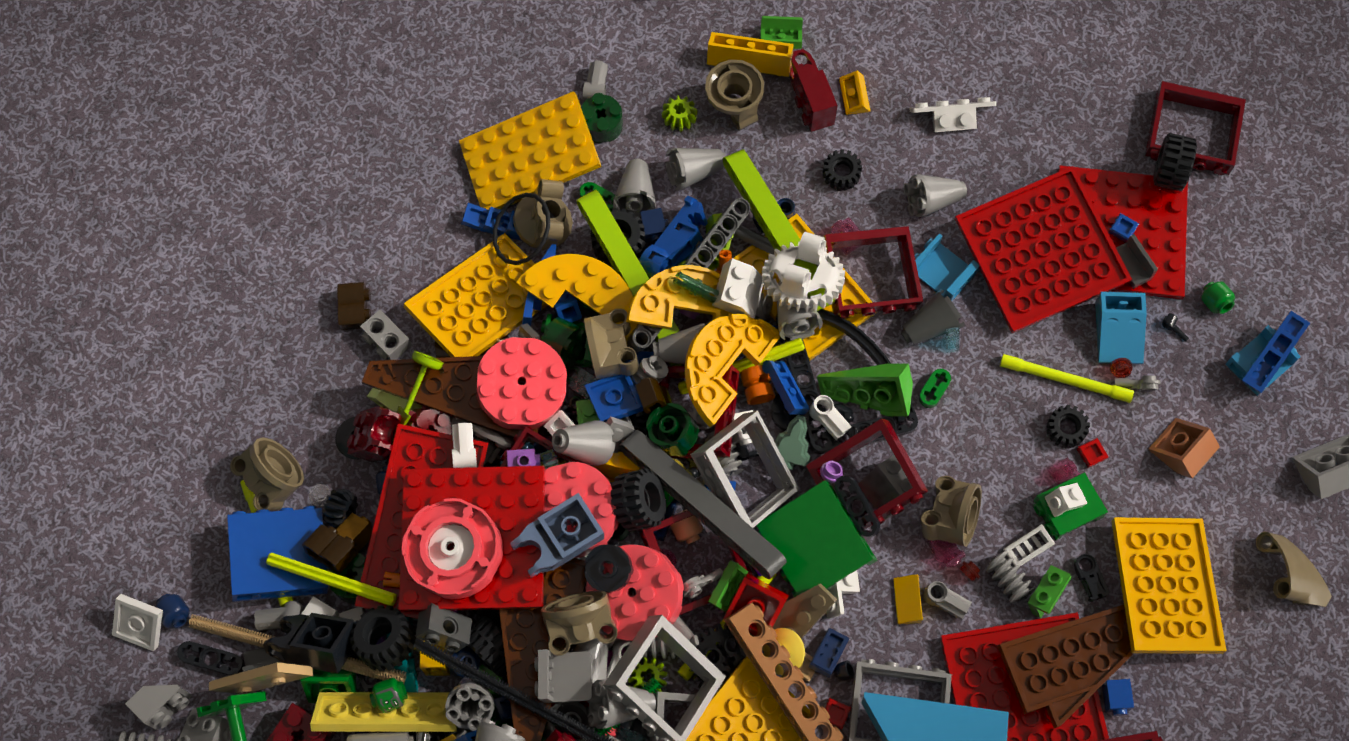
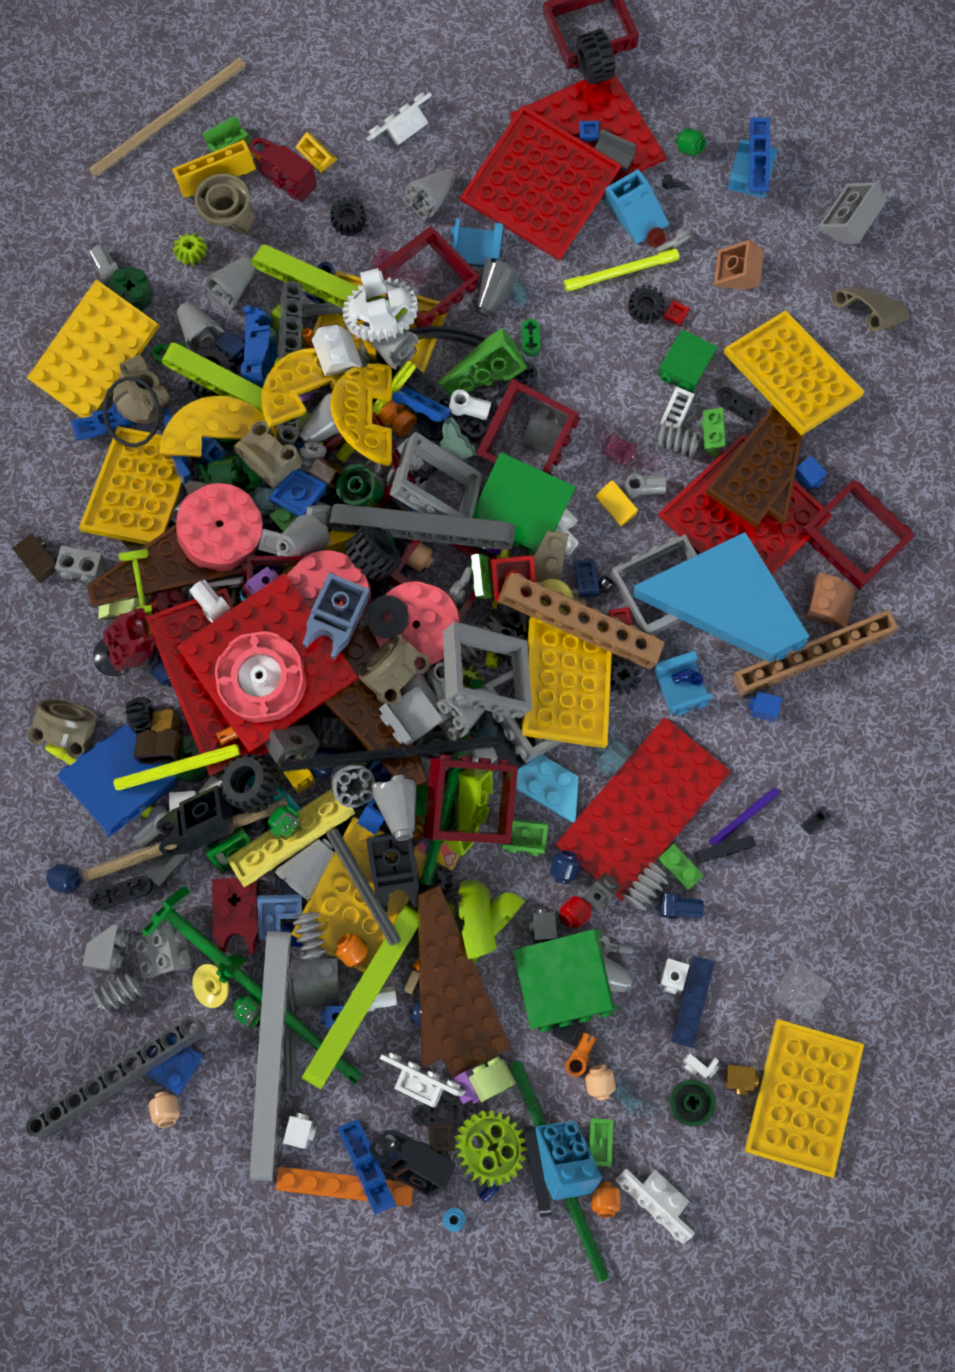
camera: 35 degrees left, 5 degrees up
(137, 622) = (42, 904): white plate -> none
(260, 678) = (175, 876): tan plate -> none
(549, 459) = (282, 567): clear light blue piece -> none
(695, 287) = (304, 367): clear green pin -> none
(831, 471) = (500, 443): medium lavender plate -> none
(871, 517) = (520, 455): black beam -> none
(953, 512) = (607, 416): dark tan piece -> none
(970, 570) = (647, 453): clear red plate -> none
(1063, 471) = (665, 339): clear pink tile -> none
(1065, 499) = (681, 356): white bracket -> none

